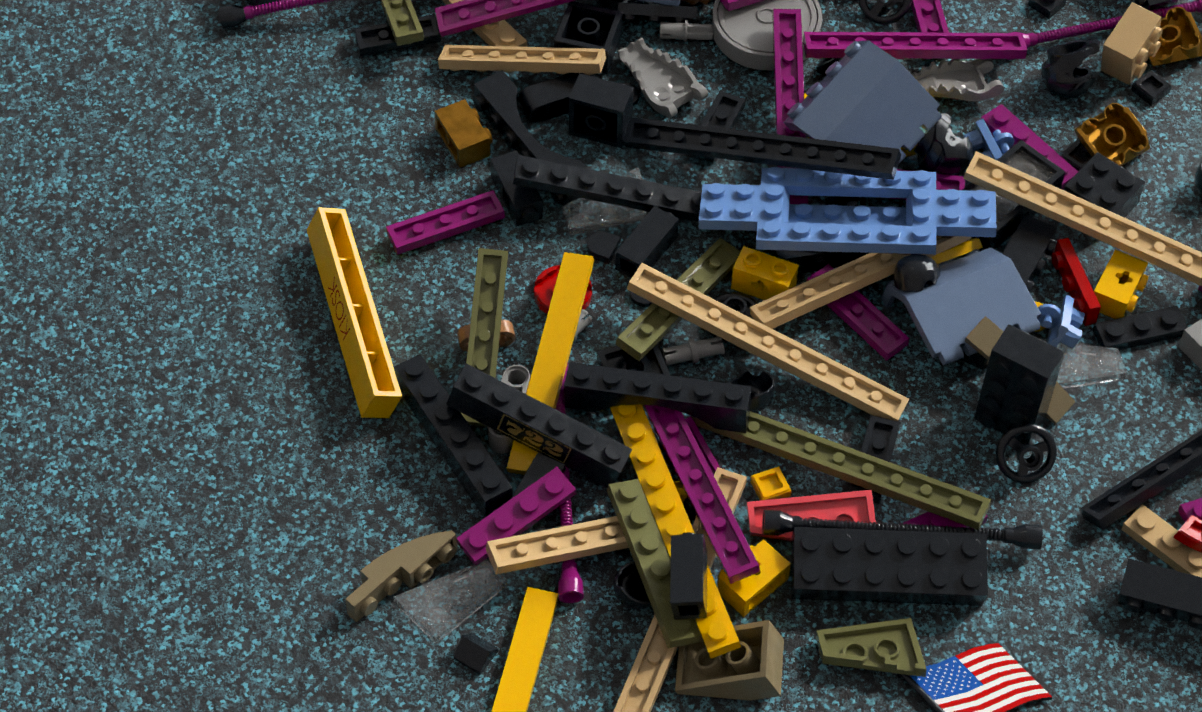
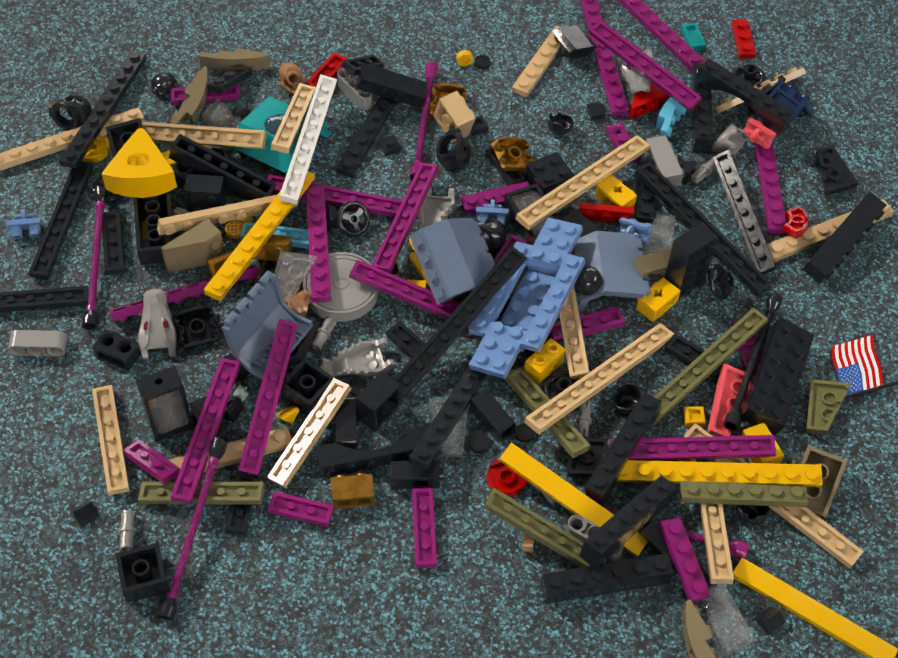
camera: 70 degrees left, 0 degrees up
(354, 313) = (484, 607): yellow brick -> none
(416, 92) = (301, 509): none -> magenta plate
(542, 36) = (288, 414): none -> yellow slope
(688, 576) = (774, 472): black brick -> none
(950, 387) = (662, 298): none -> yellow brick
(1118, 410) = (692, 217): none -> black plate

